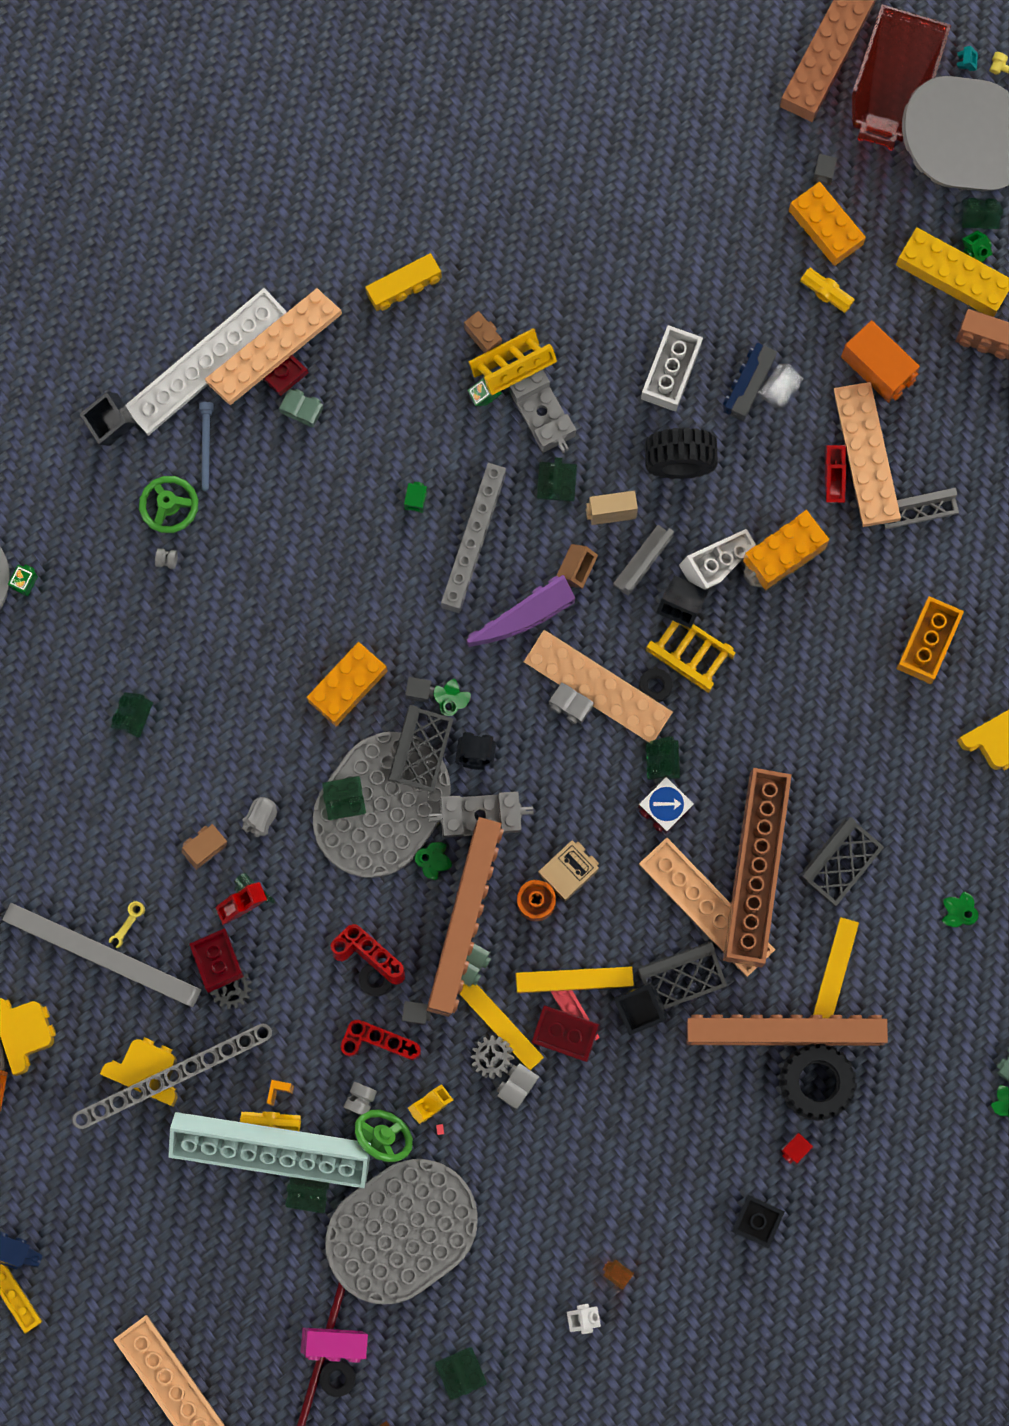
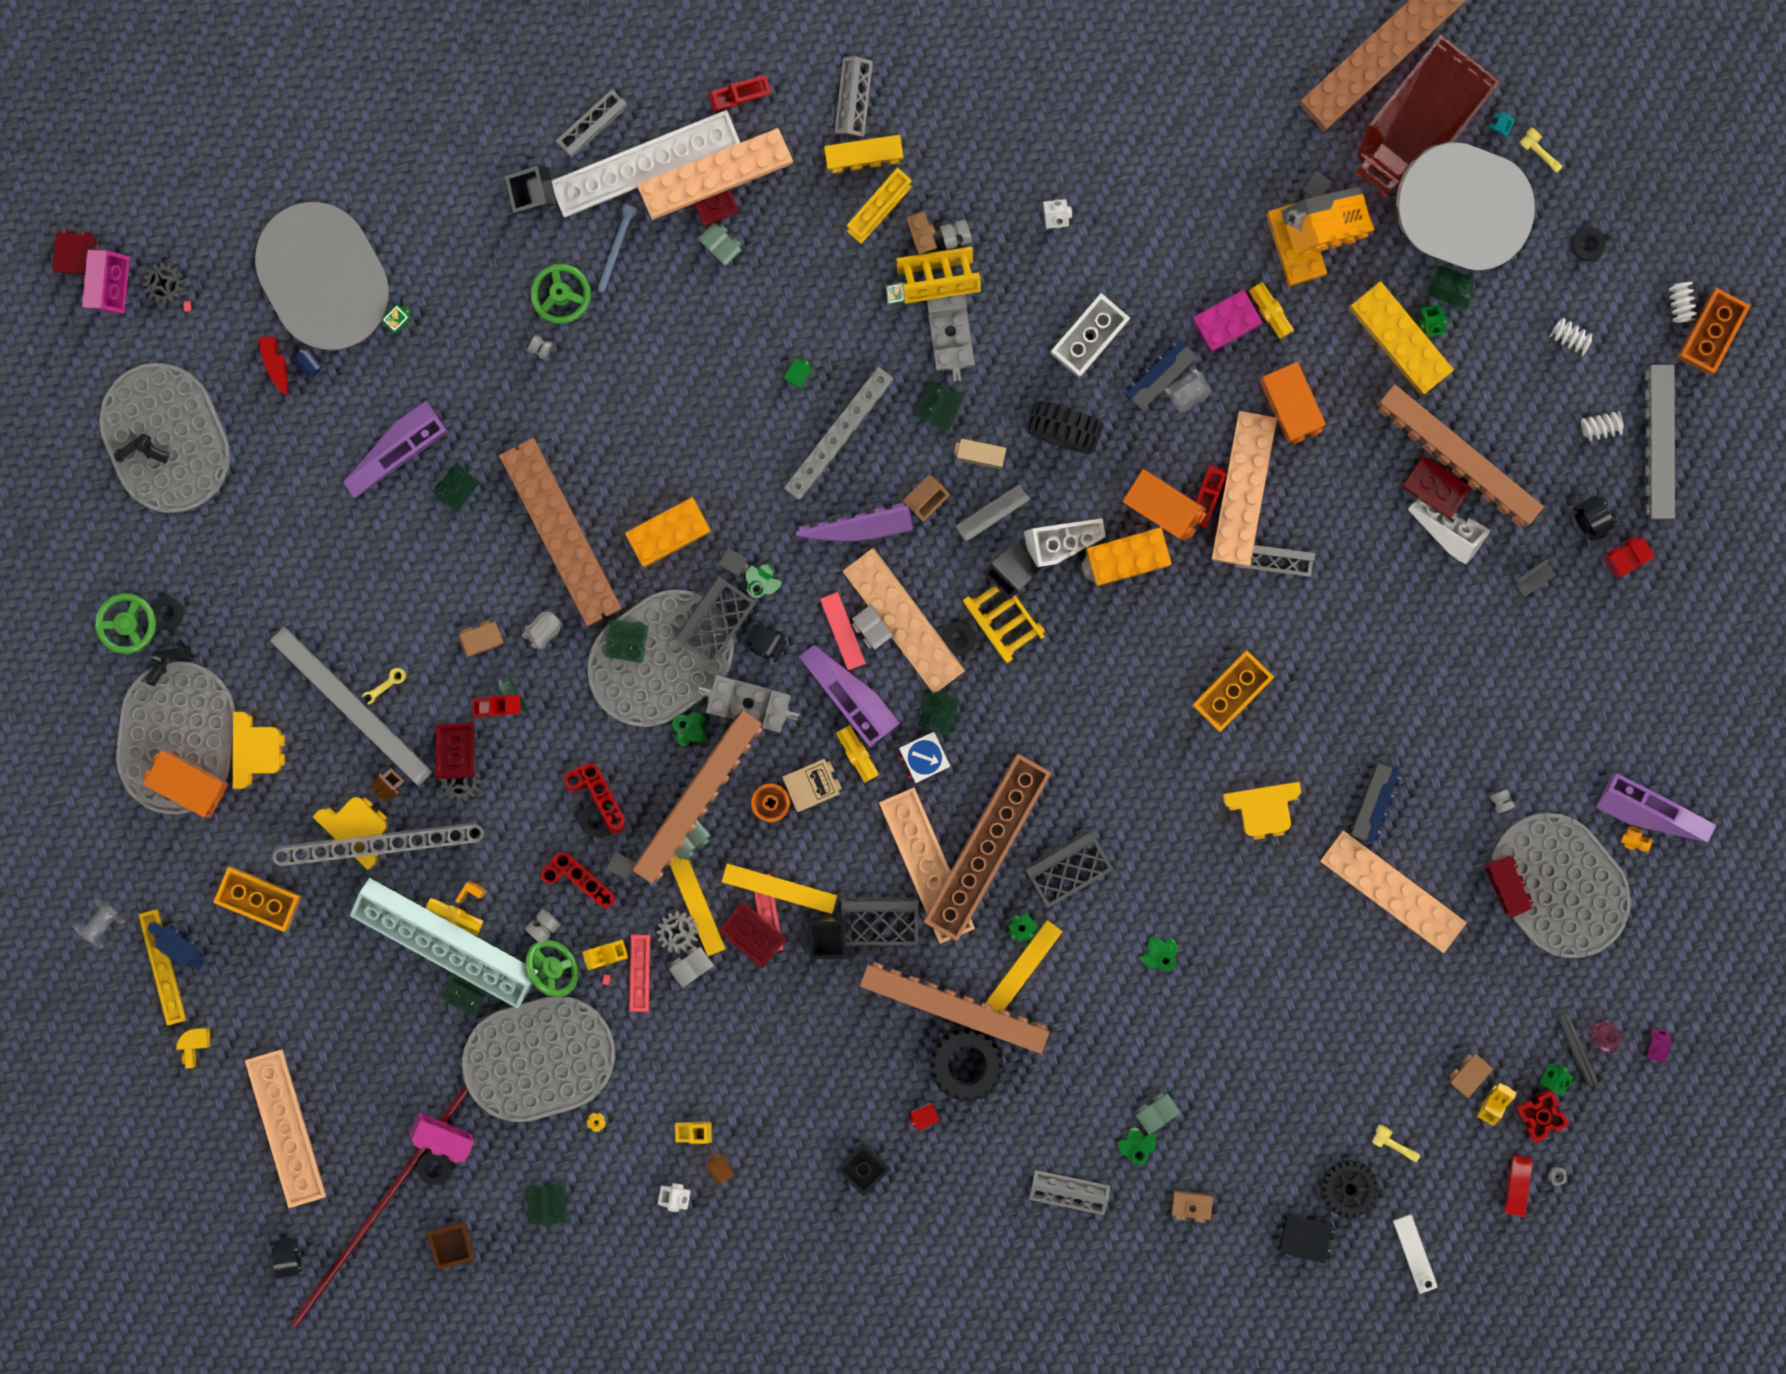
camera: 25 degrees right, 10 degrees up
(53, 1339) = (190, 1041): none -> yellow brick
(62, 698) = (396, 447): none -> medium lavender wedge
(73, 1174) = (257, 899): none -> light orange brick
(148, 346) = (582, 140): none -> light grey fence
(162, 1021) = (387, 785): none -> reddish brown brick
(245, 720) = (560, 532): none -> nougat piece
(270, 270) = (739, 93): none -> red slope
(371, 237) = (850, 95): none -> light grey fence
(435, 319) = (879, 205): none -> yellow fence
(470, 1111) = (639, 973): none -> coral tile
(485, 1273) = (596, 1117): none -> yellow plate
(508, 325) = (956, 234): none -> light grey wheel
(544, 717) = (842, 631): none -> coral tile
(578, 775) = (853, 697): none -> medium lavender wedge
(579, 1247) = (693, 1132): none -> yellow brick
(599, 273) = (1057, 213): none -> white brick
(601, 825) = (857, 753): none -> yellow piece
(791, 312) = (1227, 321): none -> dark pink brick
(801, 490) = (1165, 505): none -> orange brick
(822, 925) = (1024, 920): none -> green brick
(848, 188) = (1327, 221): none -> light orange piece
(964, 1168) = (1070, 1189): none -> light grey fence

